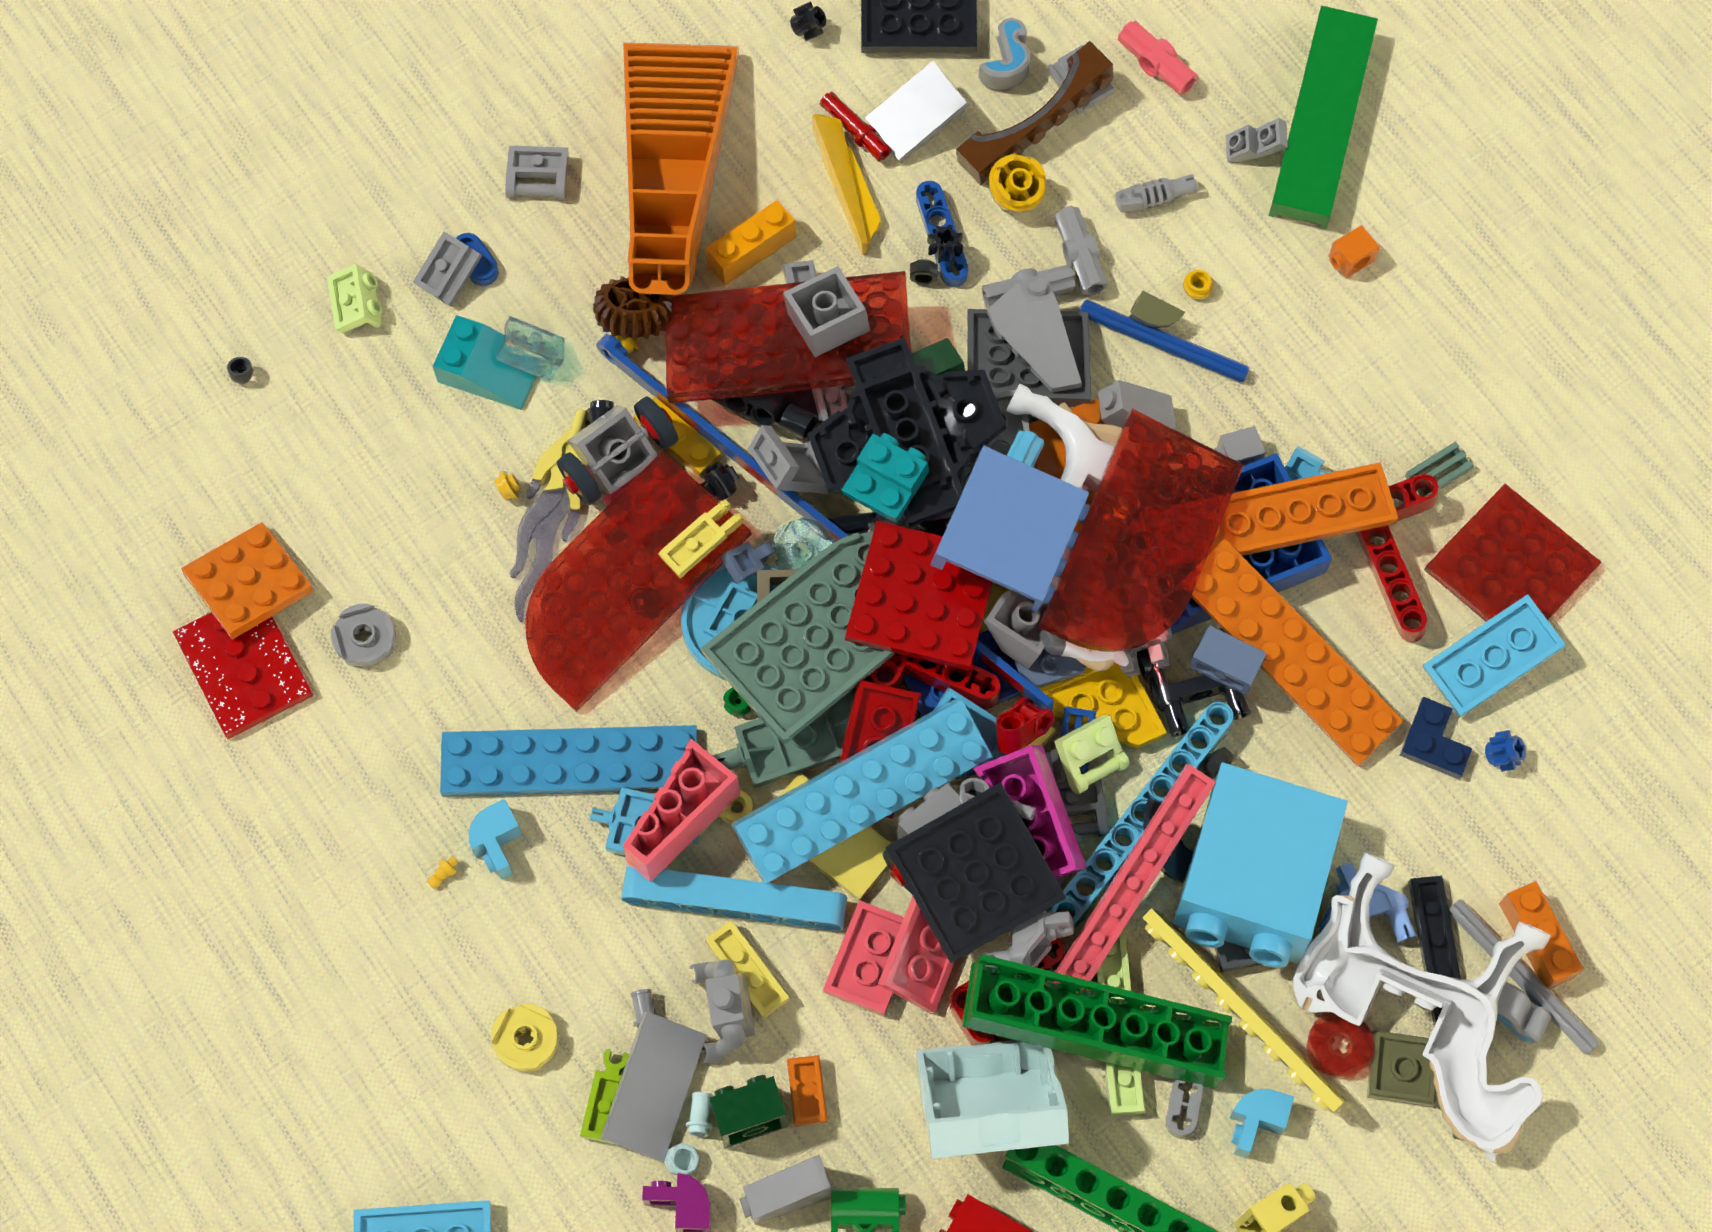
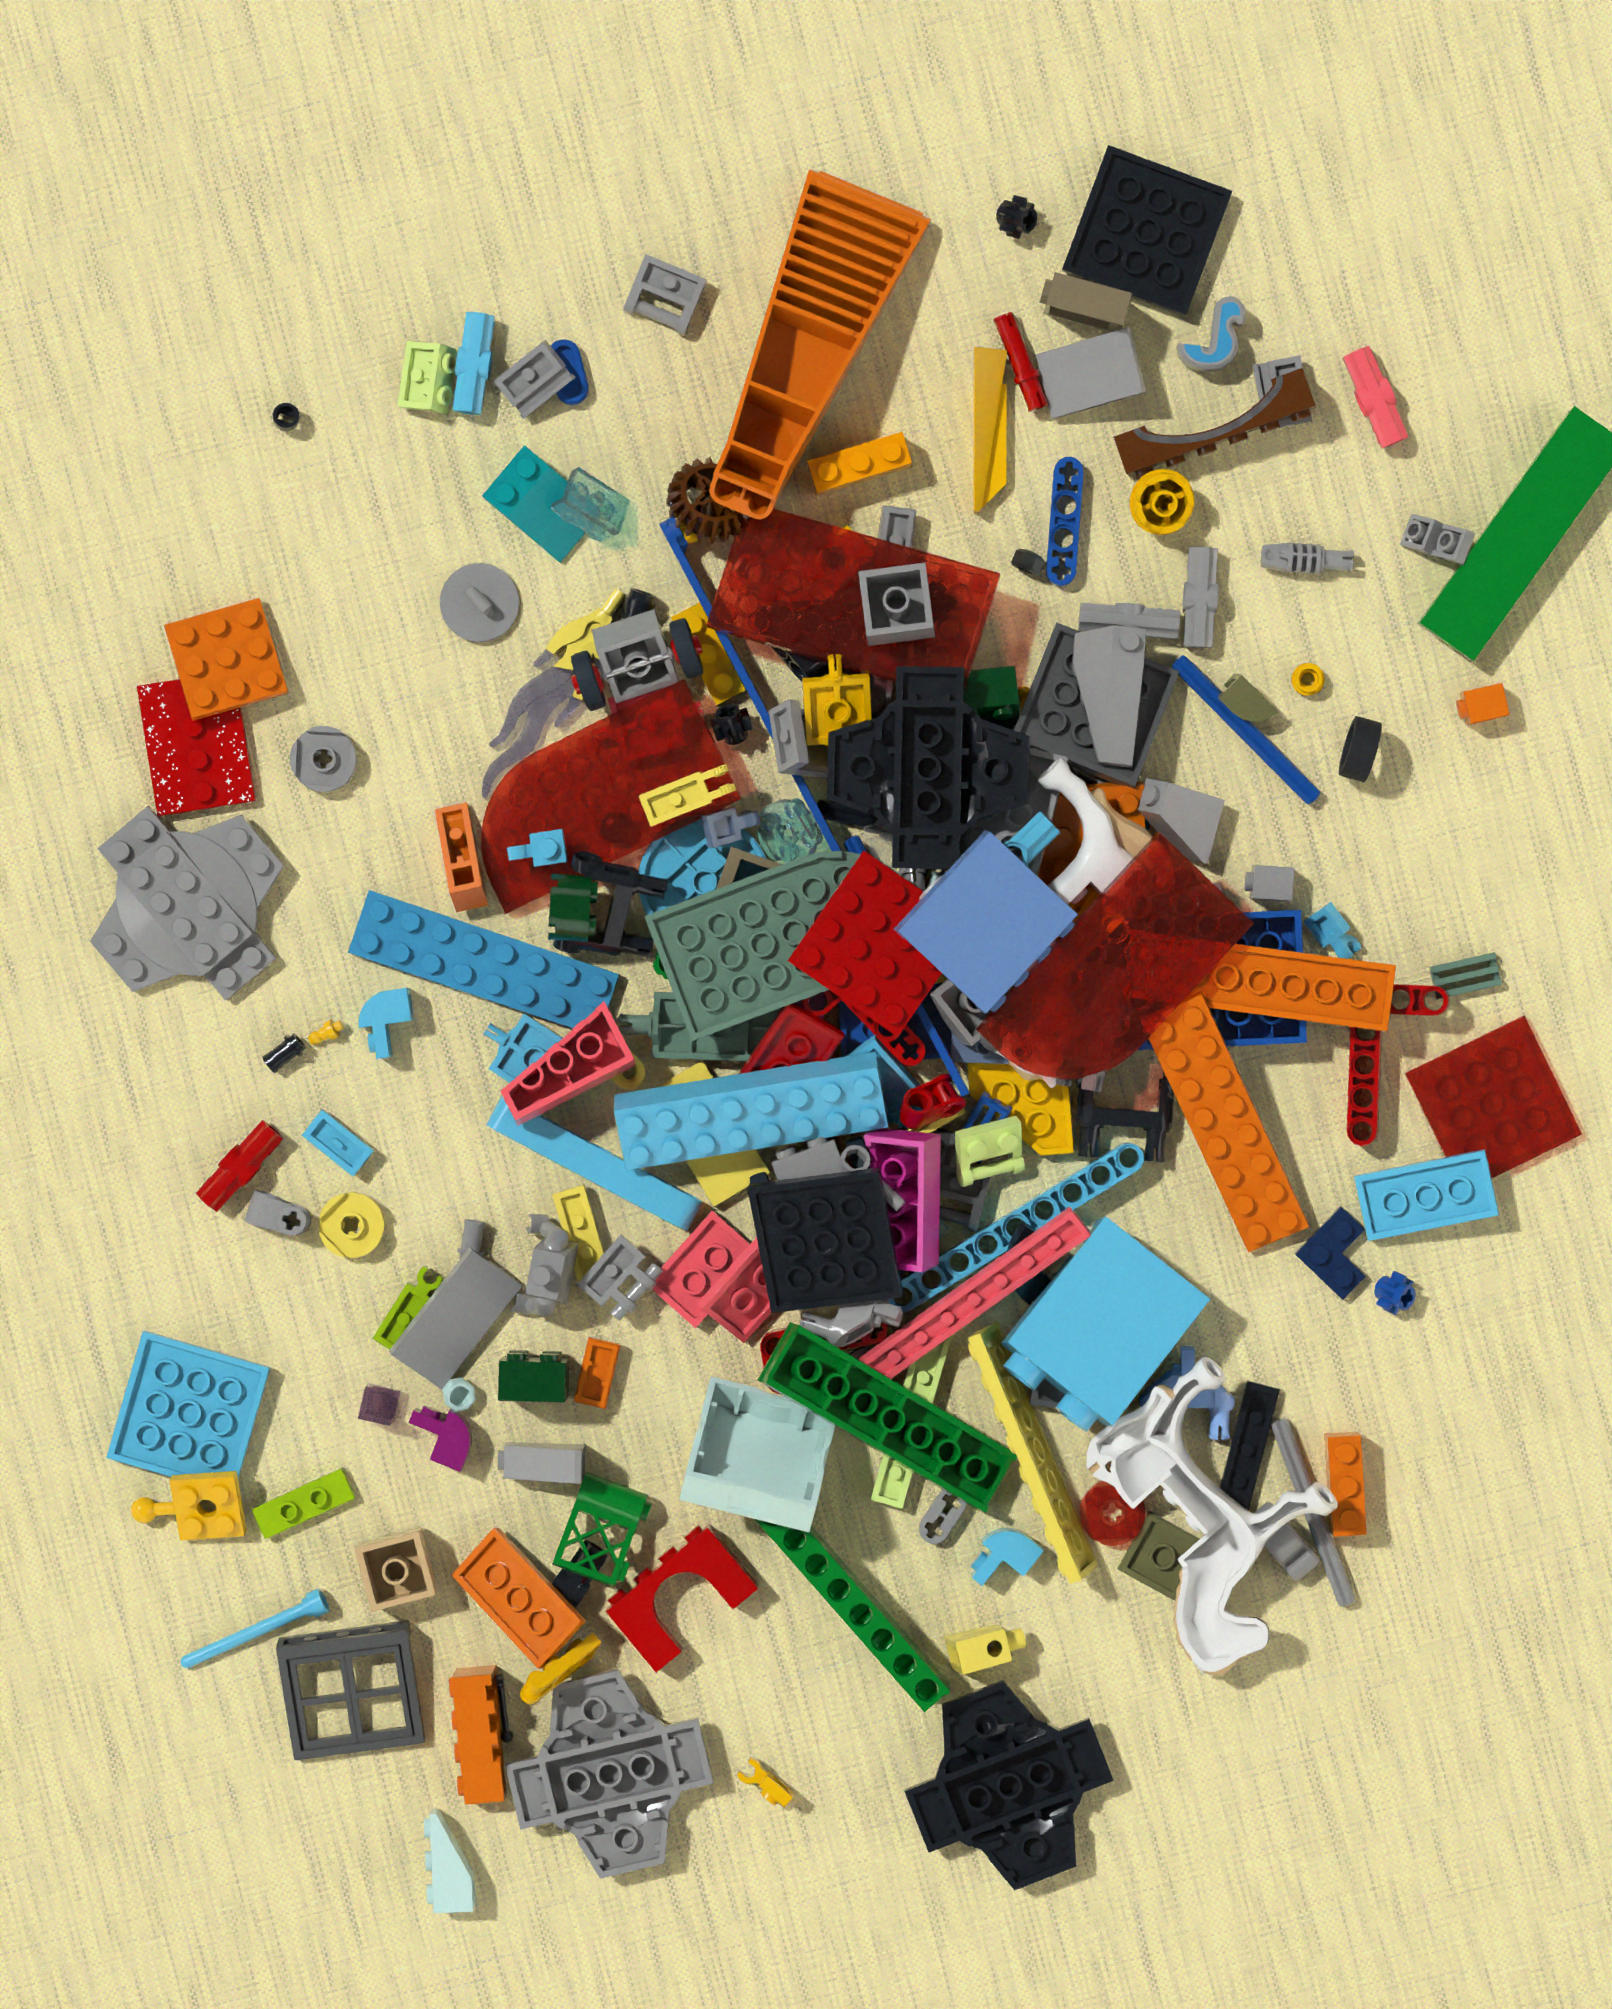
camera: 20 degrees right, 20 degrees up
(275, 802) = (187, 903): none -> light grey plate
(391, 275) = (473, 363): none -> medium azure piece
(399, 1020) = (239, 1166): none -> red piece
(409, 902) = (284, 1052): none -> black pin
(444, 1052) = (271, 1213): none -> light grey piece
(460, 463) = (479, 602): none -> light grey shield
(486, 966) = (338, 1142): none -> medium azure plate
(507, 485) = (517, 649): yellow plate -> none
(518, 675) = (461, 857): none -> orange slope
(589, 633) = (544, 847): none -> medium azure plate
(608, 1197) = (379, 1404): none -> panel
(632, 671) = (571, 908): none -> dark green brick
(680, 694) = (627, 883): none -> black connector
(700, 1115) = (490, 1358): light aqua pin -> none
(786, 984) = (611, 1271): none -> light grey plate
(800, 415) = (834, 702): none -> yellow plate
(886, 477) = (887, 814): teal plate -> none
(889, 57) = (1085, 302): none -> dark tan window
(942, 236) = (1057, 536): black gear -> none
(1215, 759) = (1111, 1199): pearl dark grey tile -> none
(1227, 660) = (1159, 1110): sand blue panel -> none
(1267, 315) = (1360, 749): none -> black tyre

